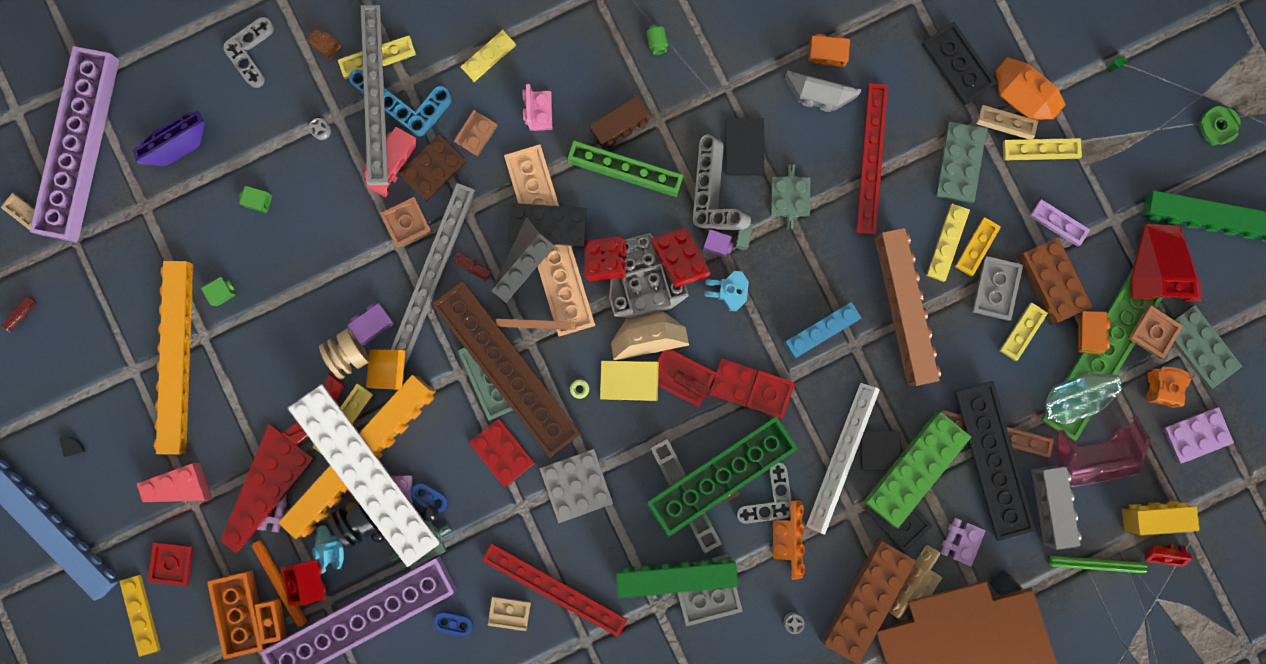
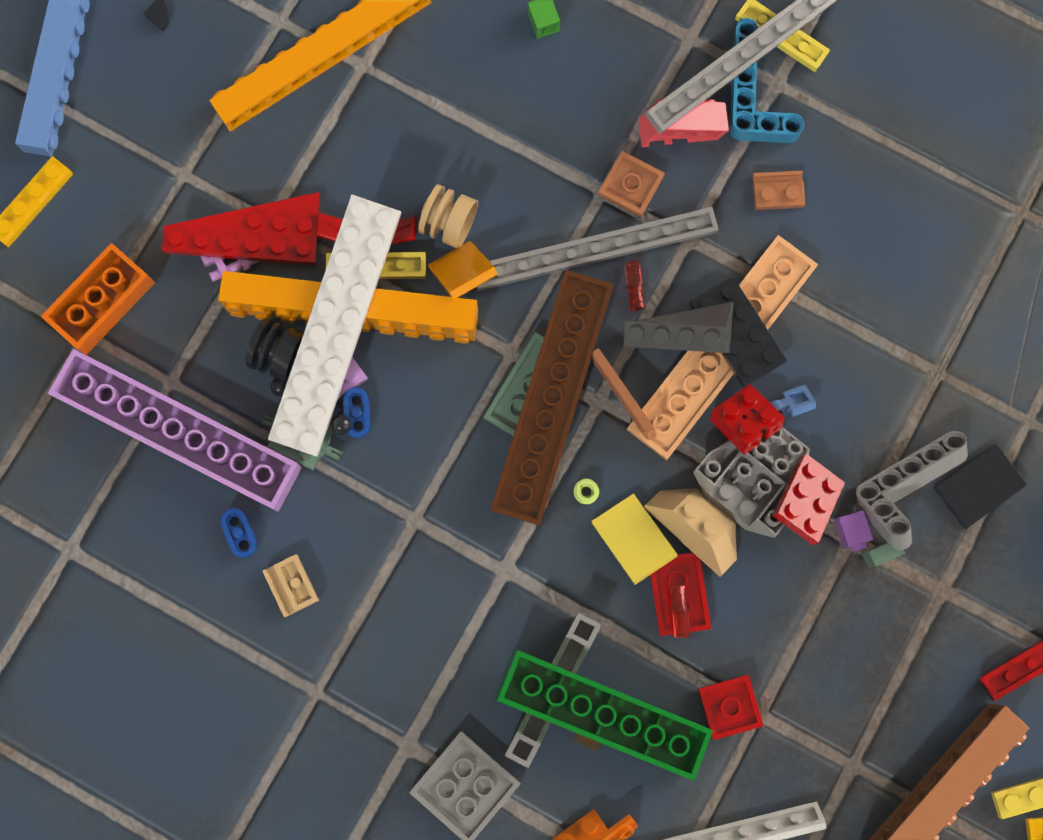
camera: 55 degrees right, 5 degrees down
(170, 563) = (104, 195): red plate -> none
(177, 485) = (192, 144): coral wedge -> none
(219, 291) = (422, 47): bright green brick -> none
(271, 620) = (113, 337): orange brick -> none
(277, 580) = (158, 320): orange axle -> none
(303, 583) = (176, 342): red brick -> none
(318, 125) = (668, 25): light grey wheel -> none
(327, 549) = (227, 343): medium azure hinge -> none
(371, 323) = (498, 222): medium lavender brick -> none
(432, 168) = (708, 171): reddish brown plate -> none
(488, 56) = (870, 146): light yellow plate -> none
(501, 452) = (458, 456): red plate -> none
(538, 109) = (852, 235): bright pink bracket -> none
(555, 589) = (350, 618): red plate -> none
(576, 486) = (478, 561): light grey plate -> none
(615, 220) = (796, 401): none -> medium blue plate
(620, 122) = (905, 332): reddish brown brick -> none
(625, 169) = (860, 373): bright green brick -> none
(657, 39) = (1024, 308): bright green brick -> none
(677, 579) = (455, 745): green brick -> none
(728, 292) = (812, 577): medium azure hinge -> none
(733, 382) = (713, 656): red plate -> none
(777, 500) = (619, 798): light grey beam -> none
(790, 197) = (964, 576): sand green plate -> none
(822, 330) = (844, 715): dark azure brick -> none

